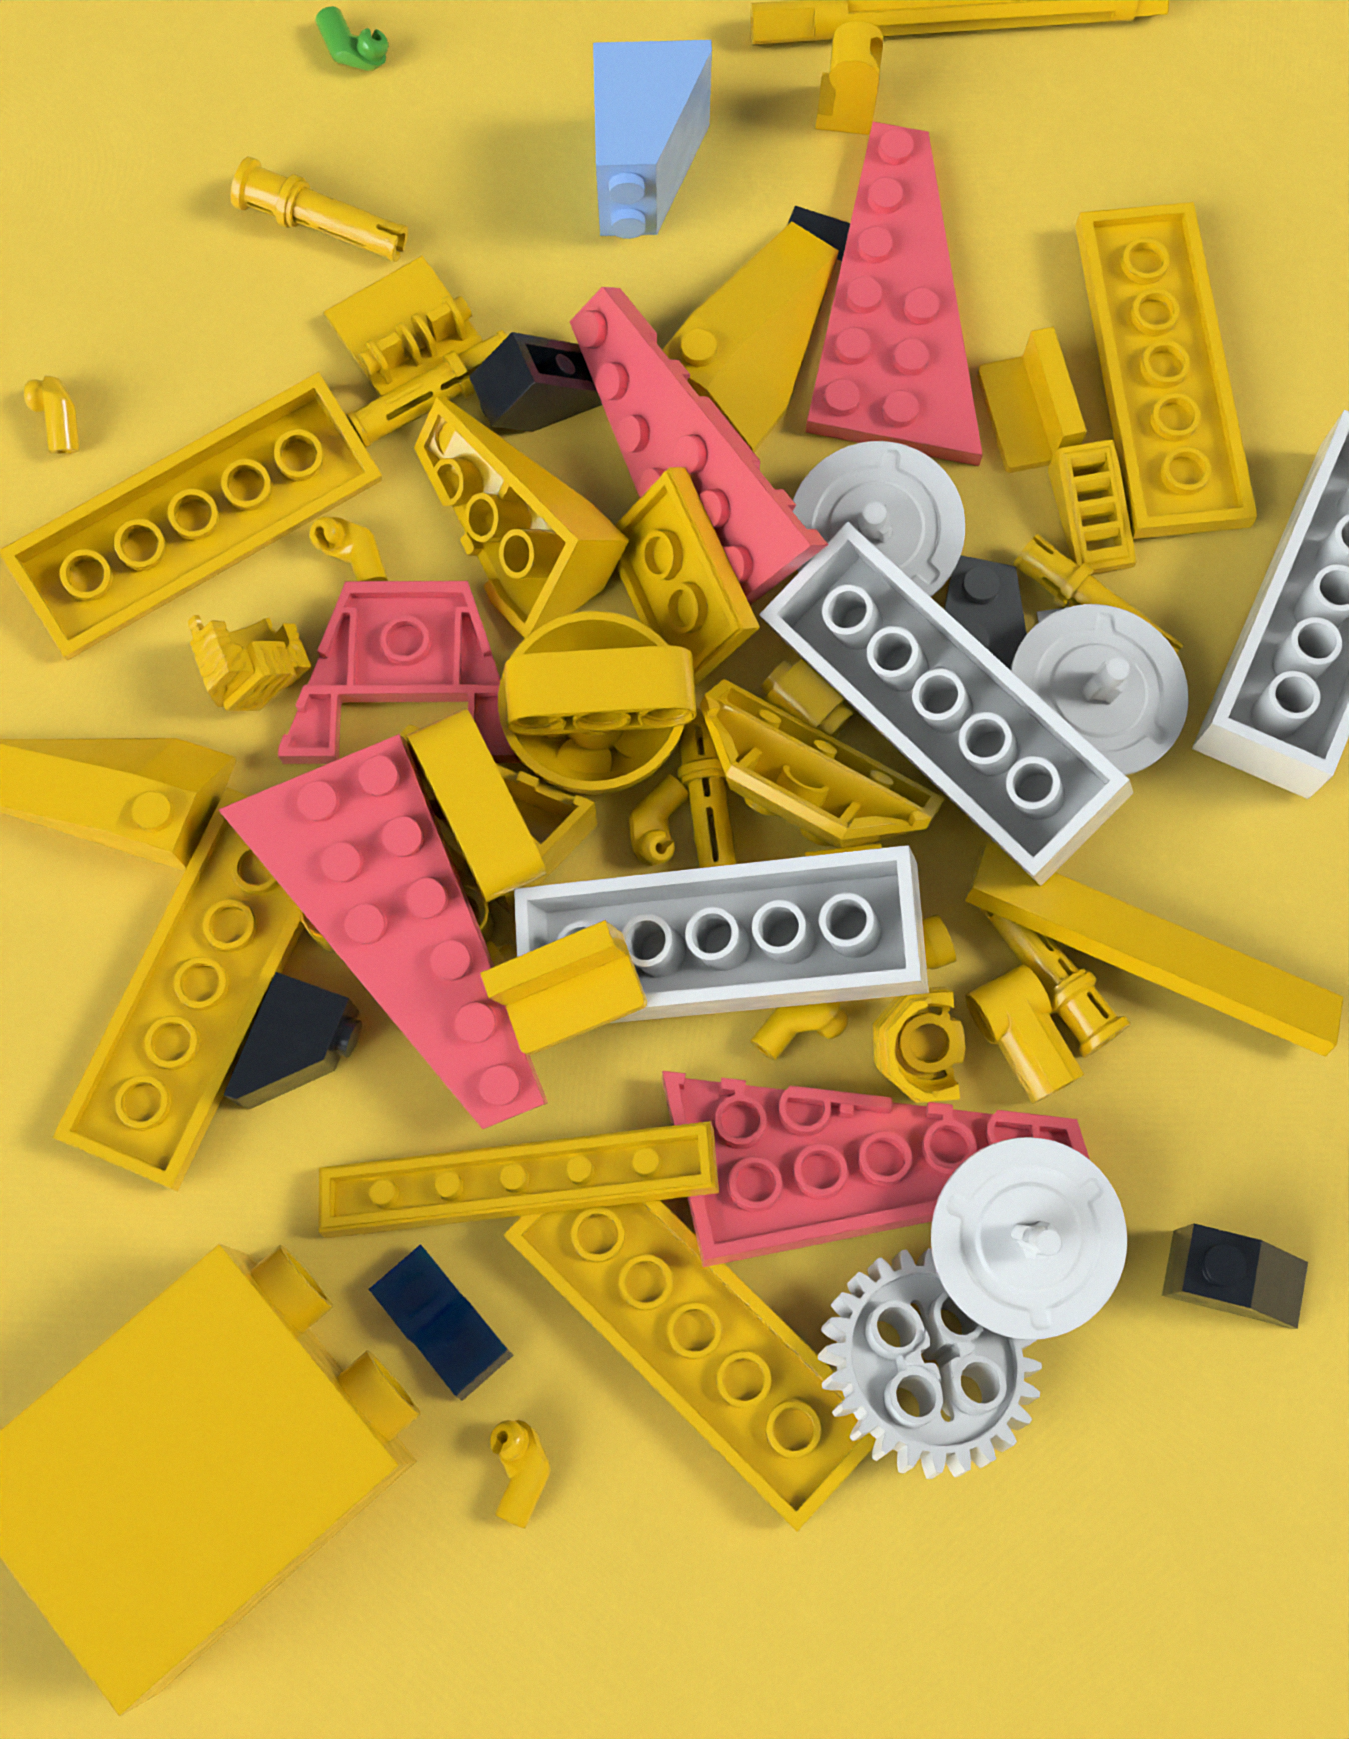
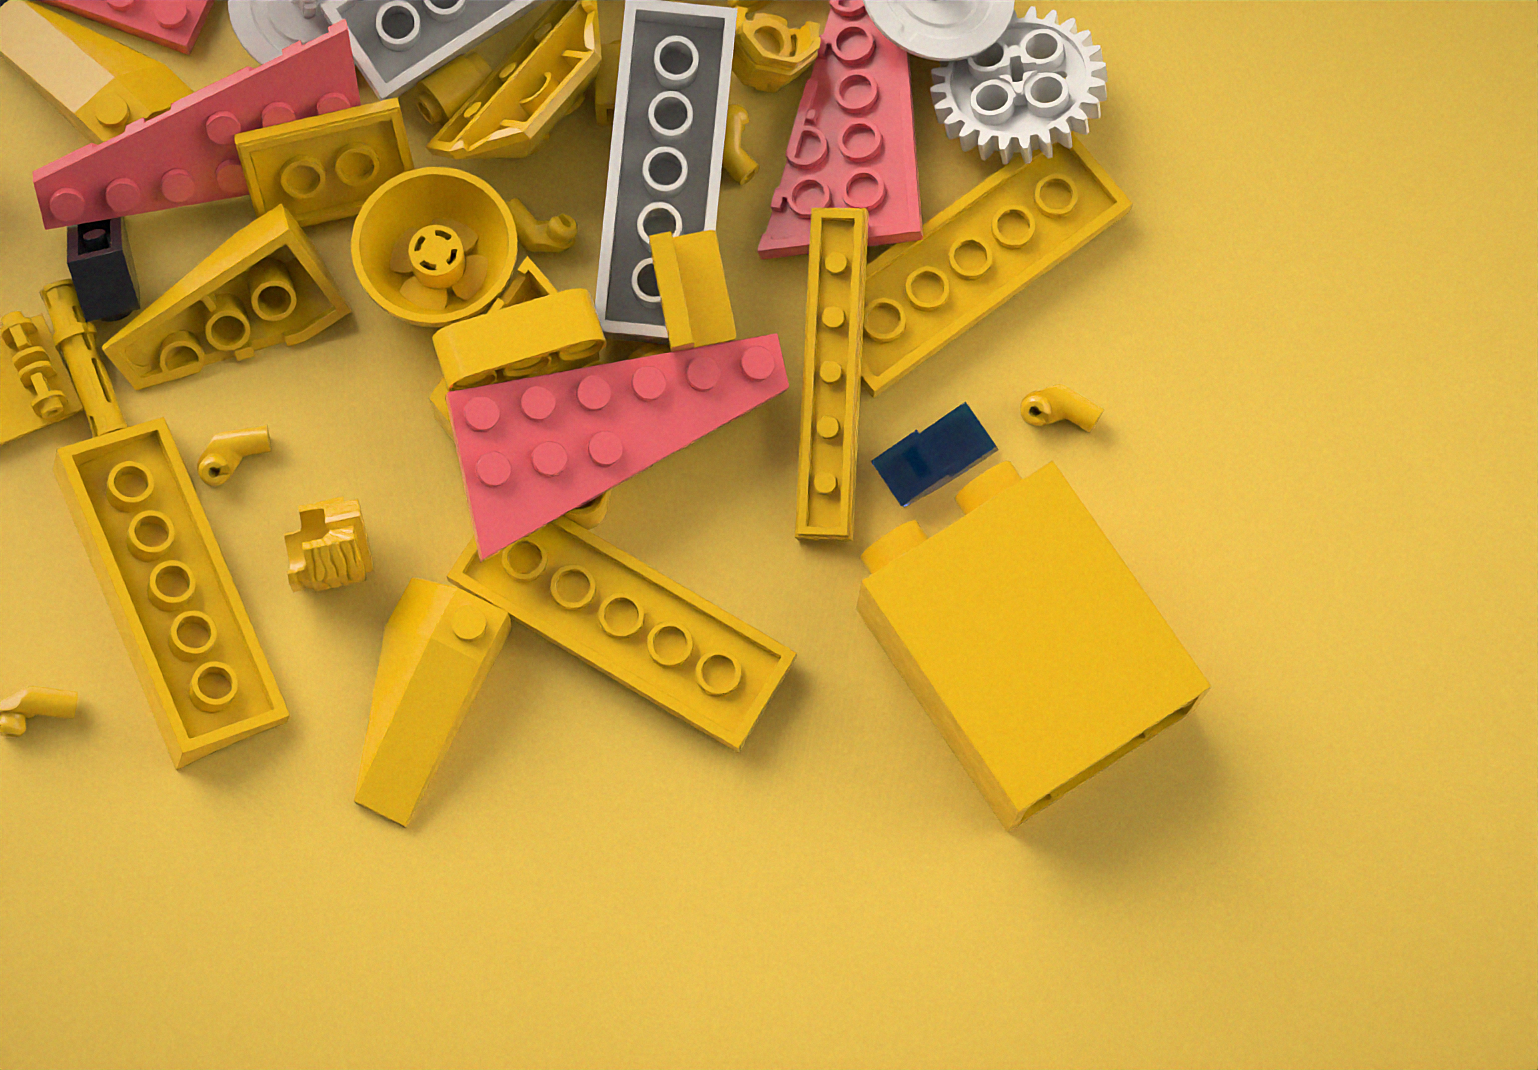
camera: 85 degrees left, 0 degrees up
(293, 1041) = (683, 542): black slope -> none
(397, 647) = (337, 418): coral wing -> none
(600, 690) = (434, 229): yellow beam -> none
(700, 774) = (538, 181): yellow pin -> none

